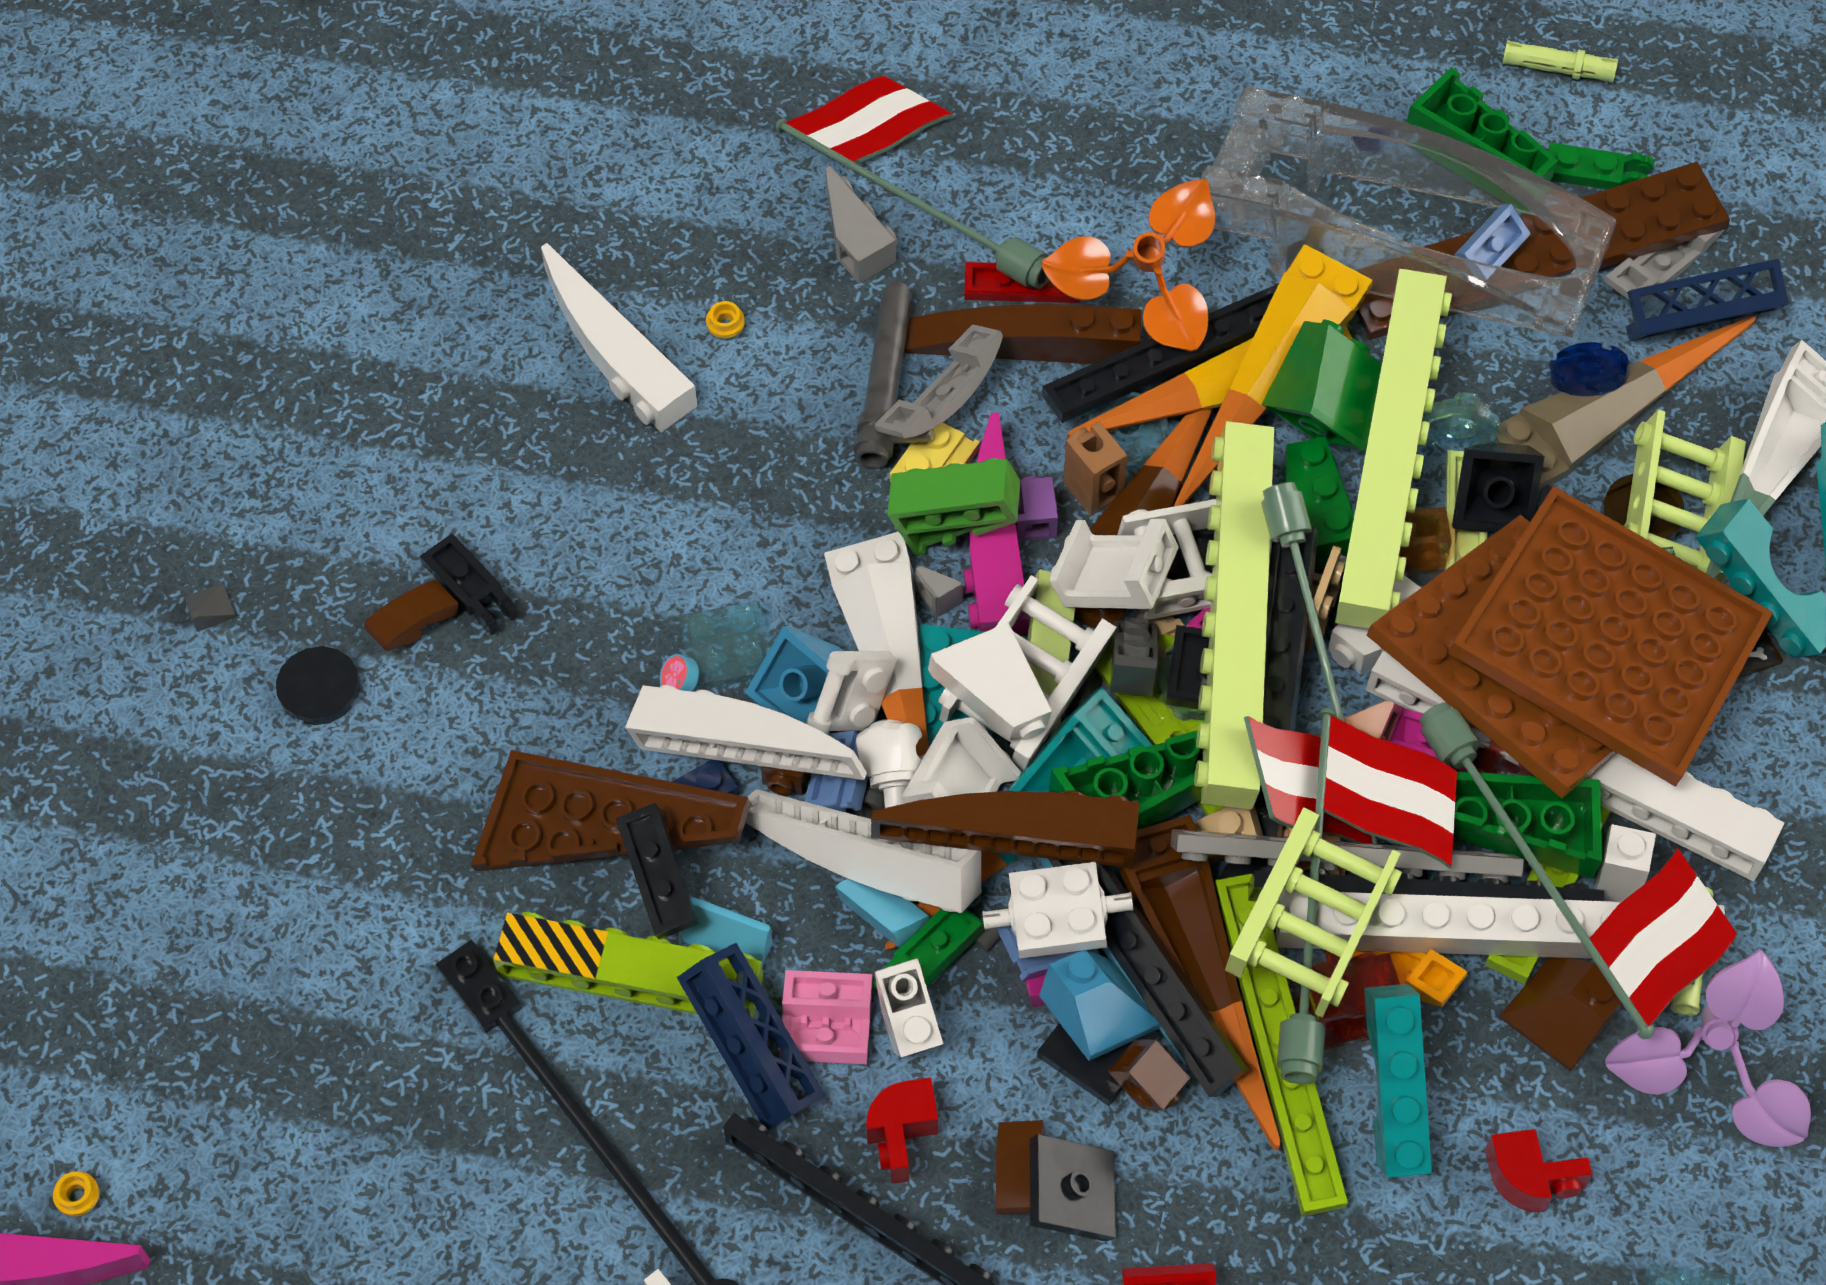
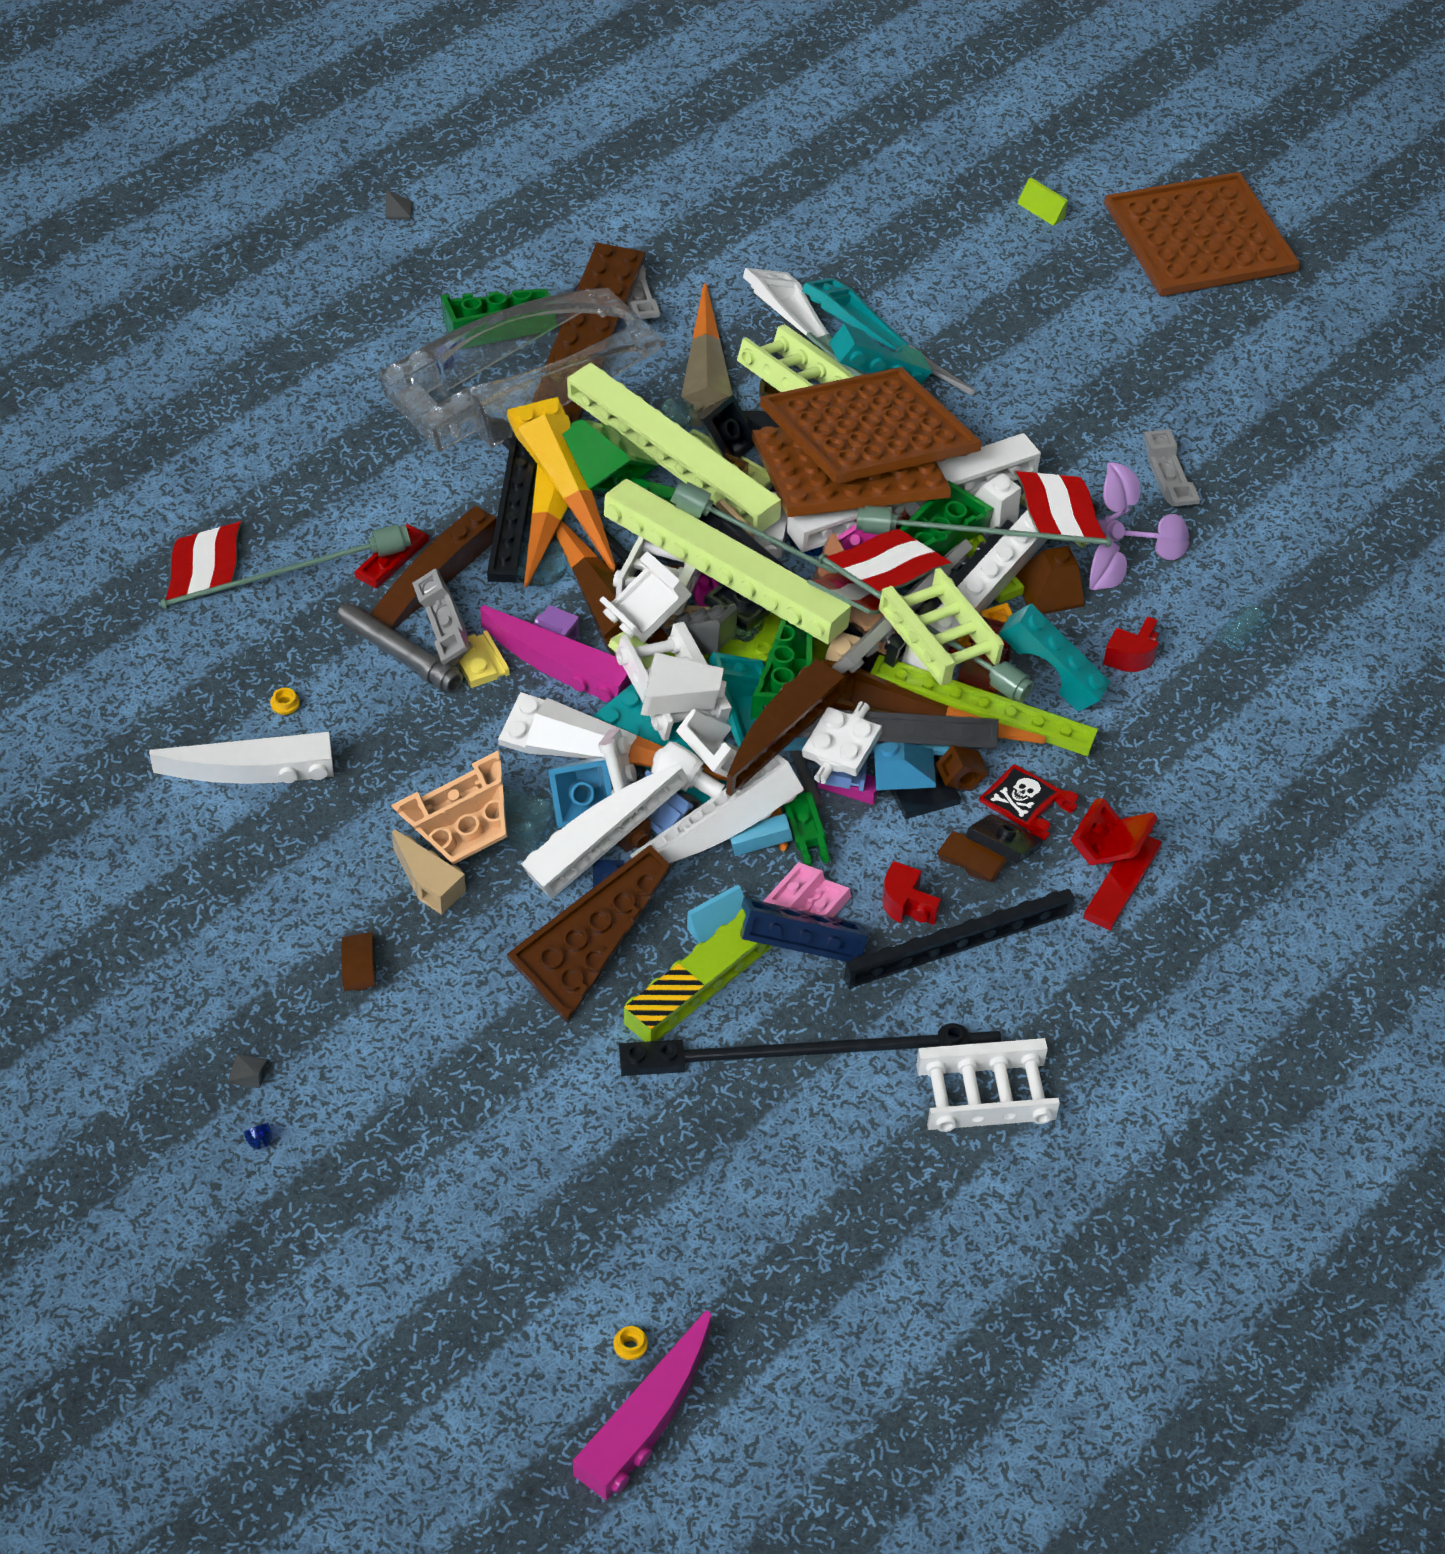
camera: 60 degrees left, 10 degrees down
(129, 666) = (258, 1133): none -> clear blue hinge
(317, 685) = (363, 1038): black tile -> none
(467, 581) = (360, 919): black hinge -> none
(571, 607) = (431, 877): none -> tan slope
(657, 871) = (662, 913): black plate -> none
(671, 581) = (462, 813): none -> light nougat wedge
(680, 672) = (520, 847): tile -> none
(859, 237) = (282, 606): light grey slope -> none
(907, 1008) = (845, 849): white slope -> none
(937, 590) = (573, 697): light grey slope -> none
(953, 500) = (534, 646): bright green wedge -> none
(1094, 467) = (560, 582): medium nougat brick -> none
(1173, 1175) = (1025, 798): none -> flag
(1176, 317) = (441, 444): orange plant -> none
(1496, 237) = (571, 336): medium blue plate -> none
(1560, 61) = (479, 255): yellowish green pin -> none
(1589, 369) = (681, 359): clear blue tile -> none
(1598, 167) = (559, 282): green hinge -> none
(1709, 314) = (690, 290): dark blue fence -> none

